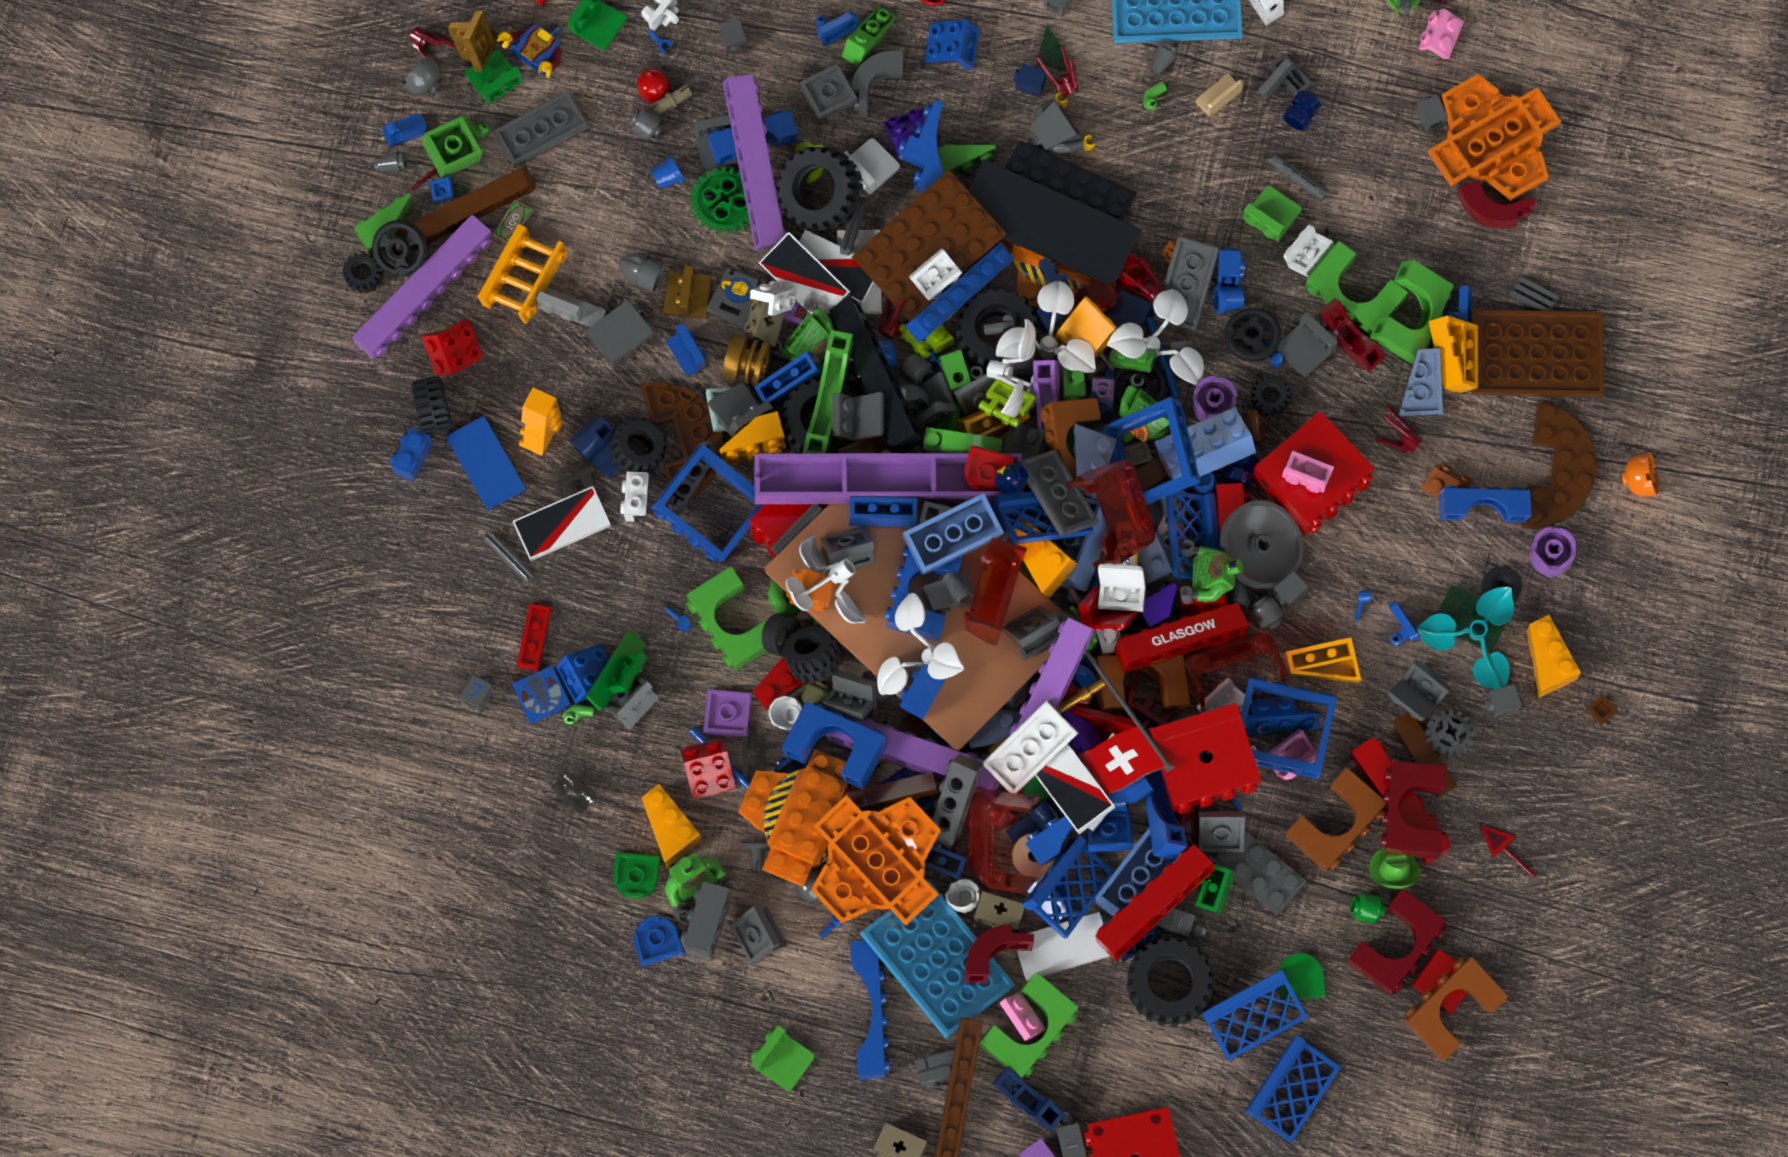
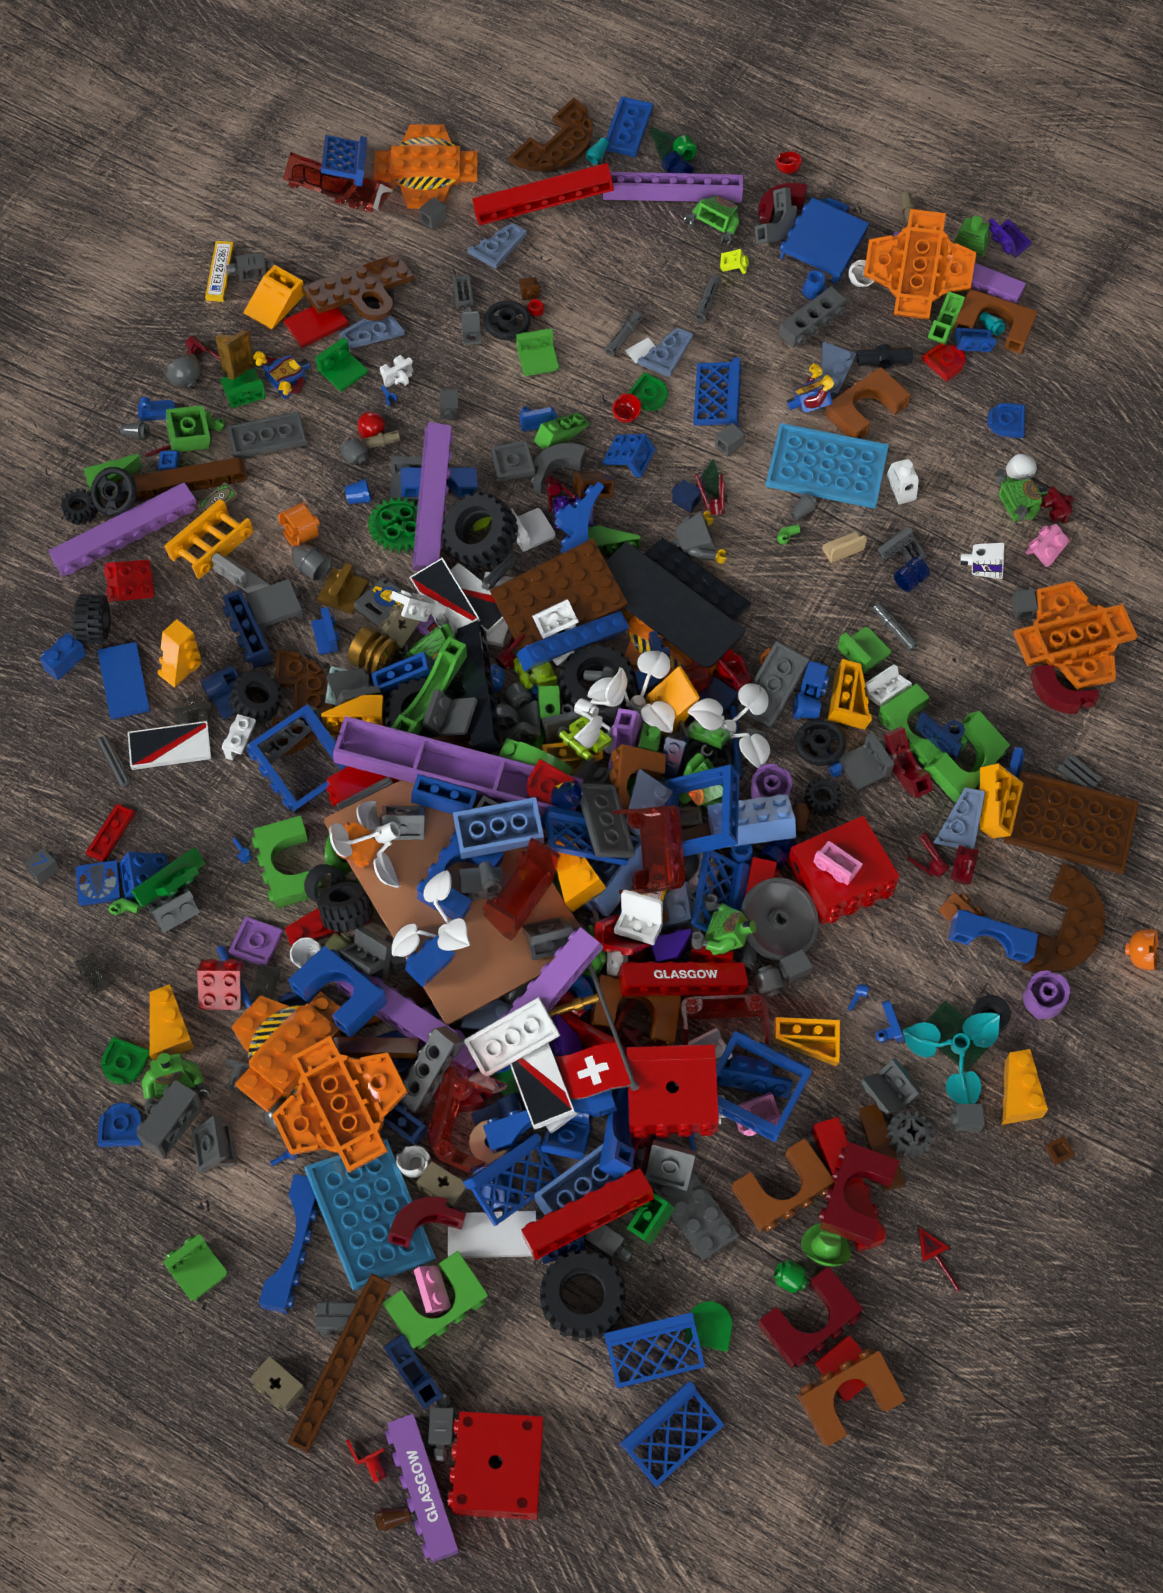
camera: 10 degrees right, 10 degrees down
(601, 370) = (247, 629): none -> dark blue brick
(616, 231) = (299, 524): none -> orange brick
(882, 110) = (554, 488): none -> dark red plant
(921, 92) = (584, 479): none -> reddish brown torso
(1269, 275) = (848, 696): none -> light orange wedge
(1377, 72) = (986, 560): none -> white torso
(1386, 301) = (944, 738): none -> dark blue piece
(1437, 432) = (964, 865): none -> dark red hips

